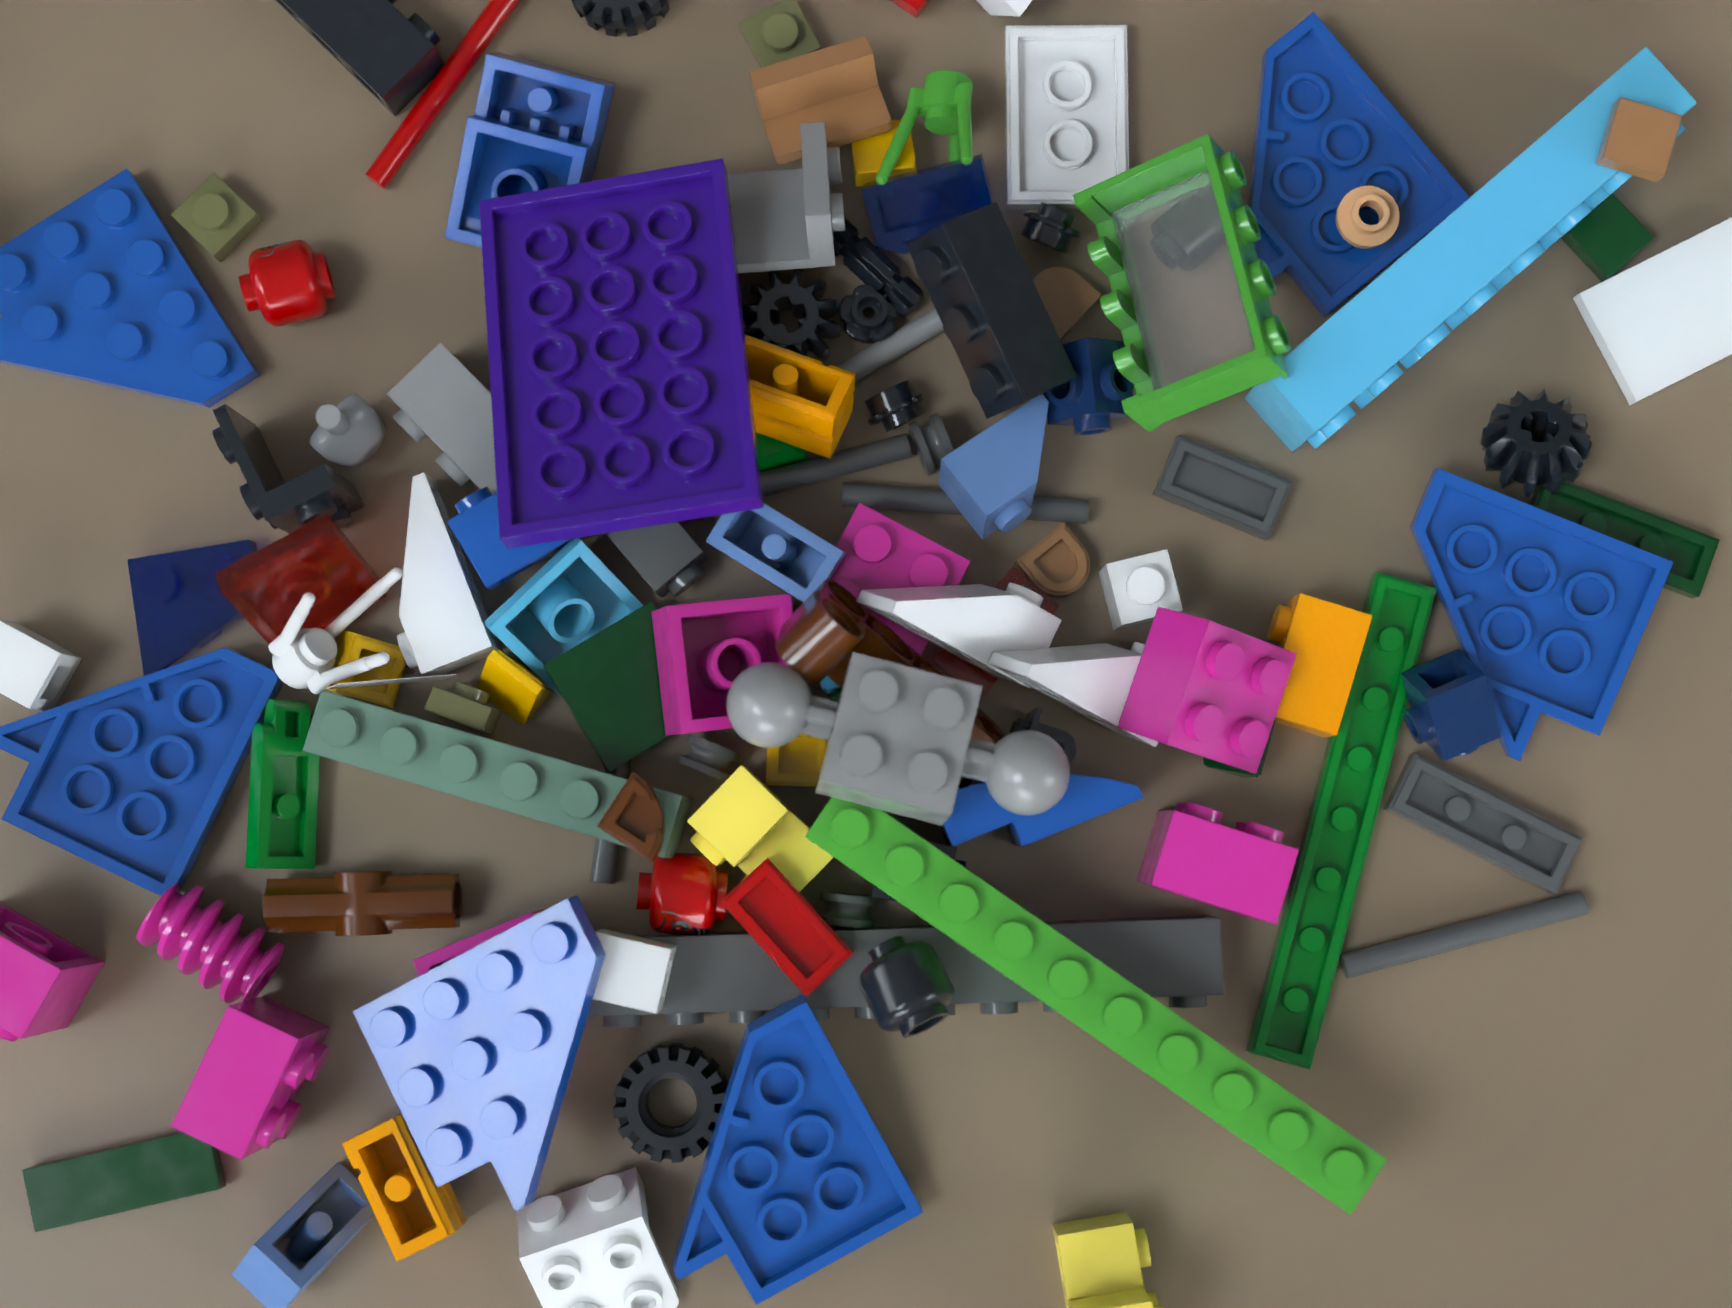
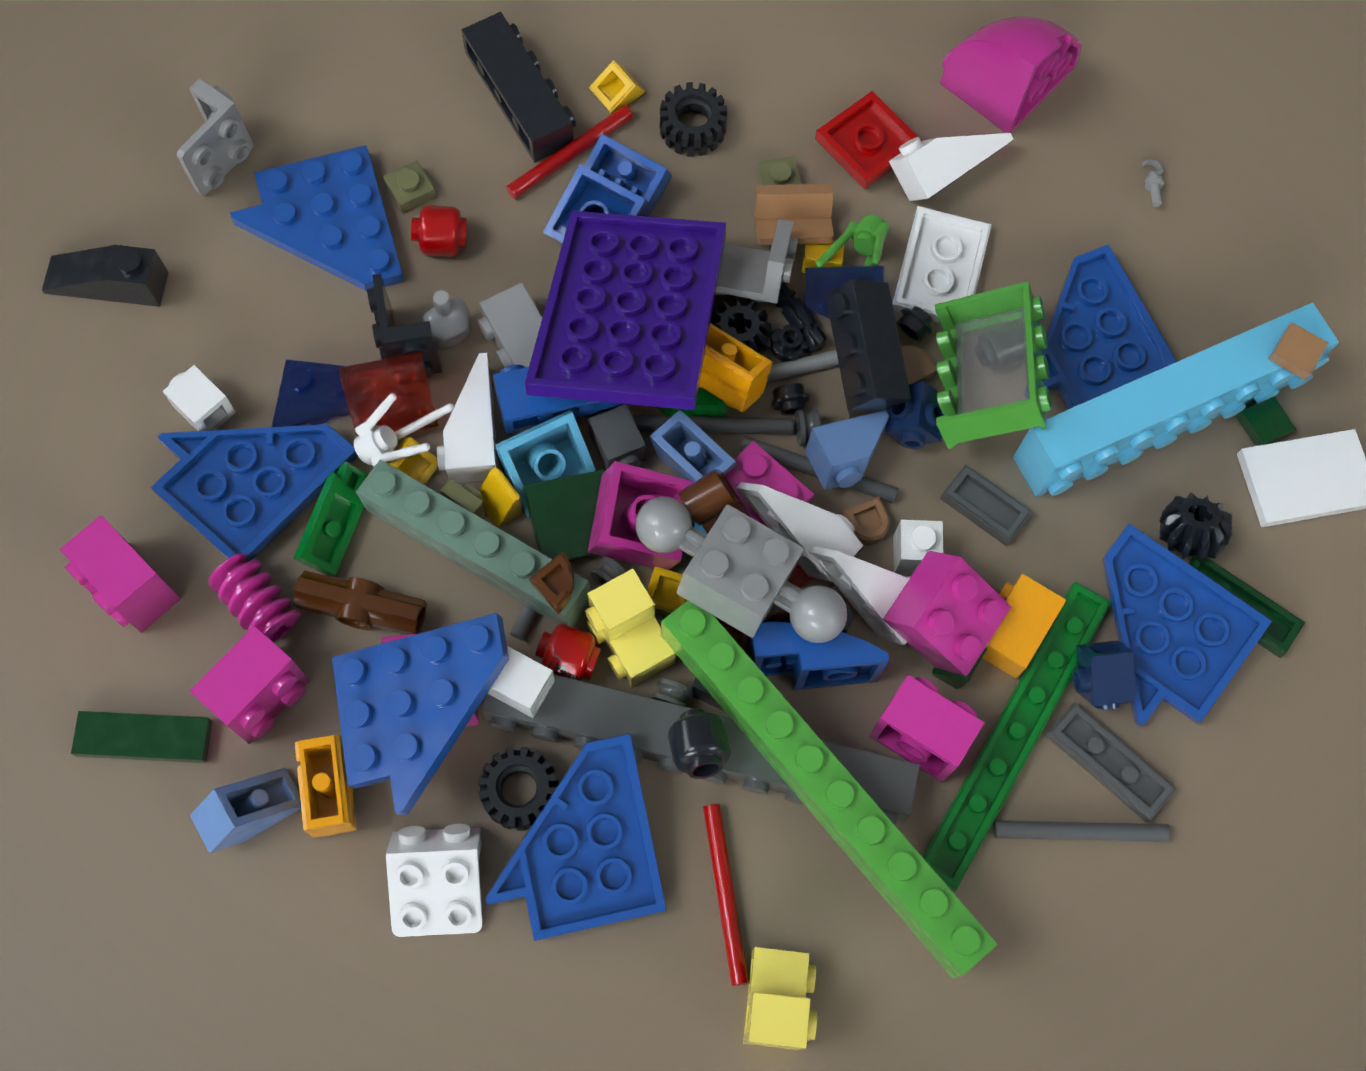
camera: 10 degrees right, 15 degrees down
(391, 681) = (423, 470): white sticker -> none
(787, 927) = (631, 687): red tile -> none
(996, 1161) = (725, 895): none -> red bar
(1354, 229) = (1111, 373): light nougat plate -> none

